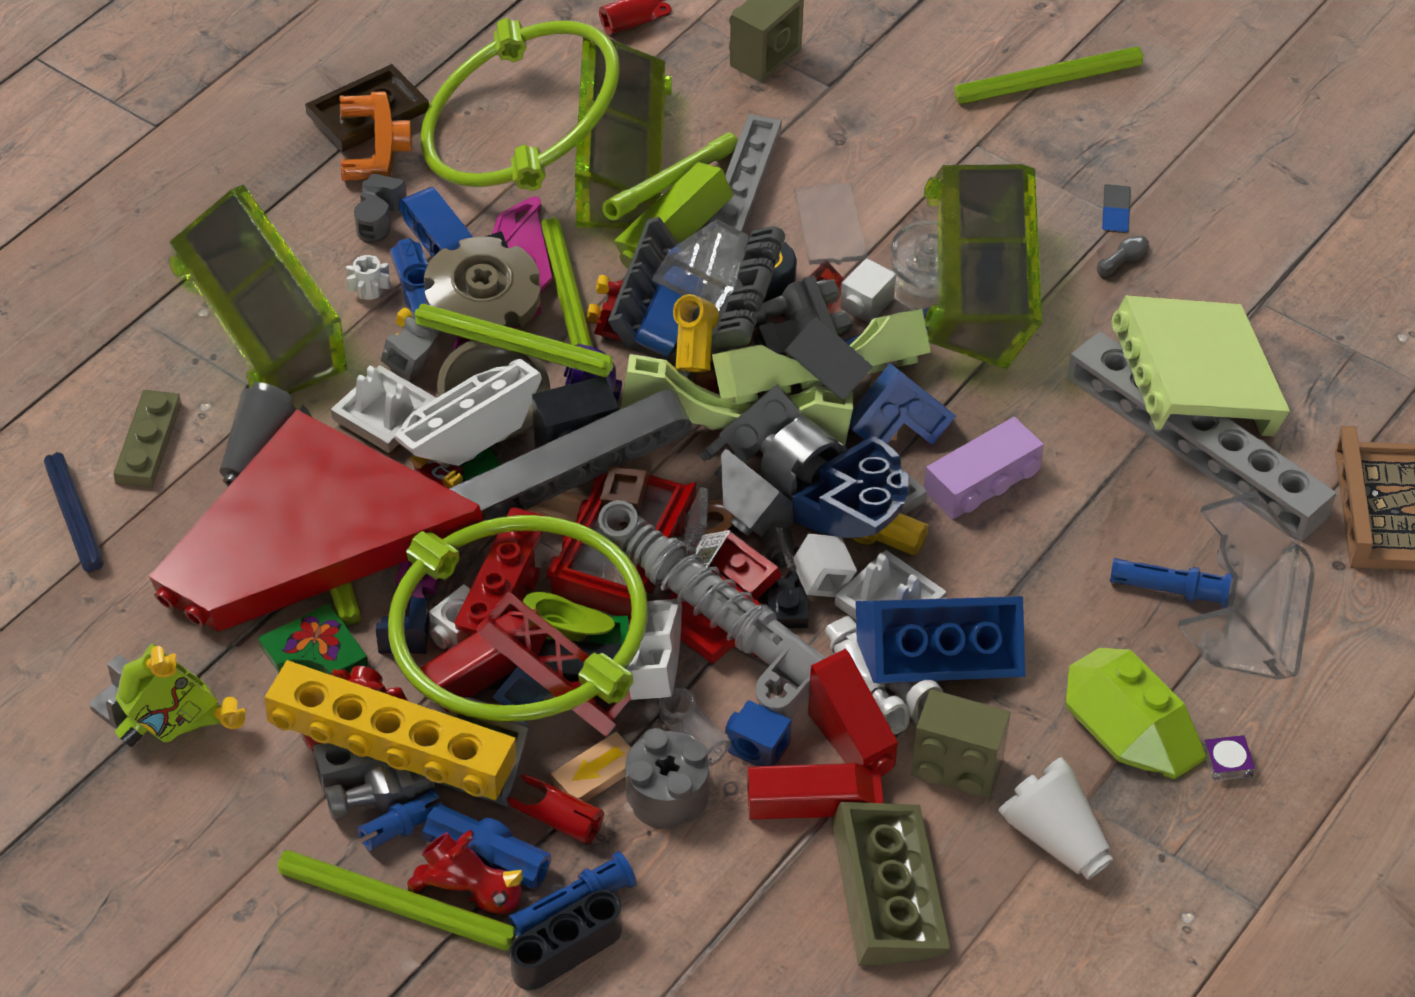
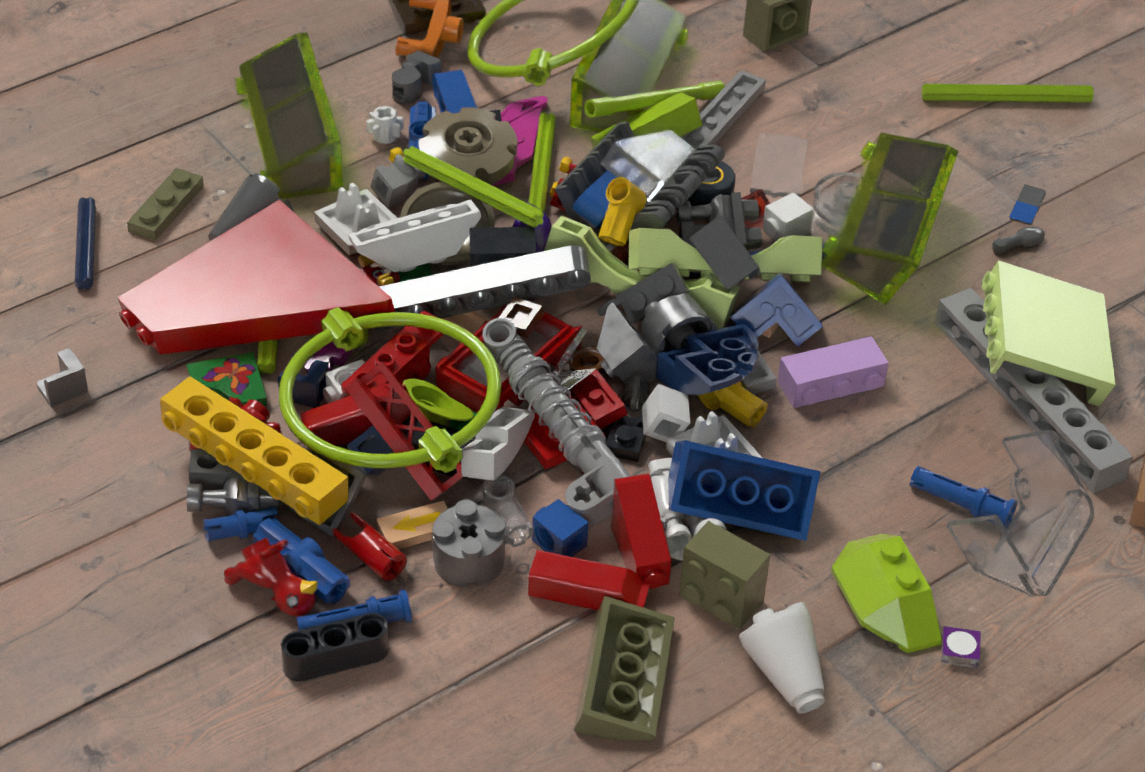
camera: 15 degrees right, 5 degrees down
(168, 700) = (91, 388): lime torso -> none
(396, 900) = (211, 582): lime axle -> none

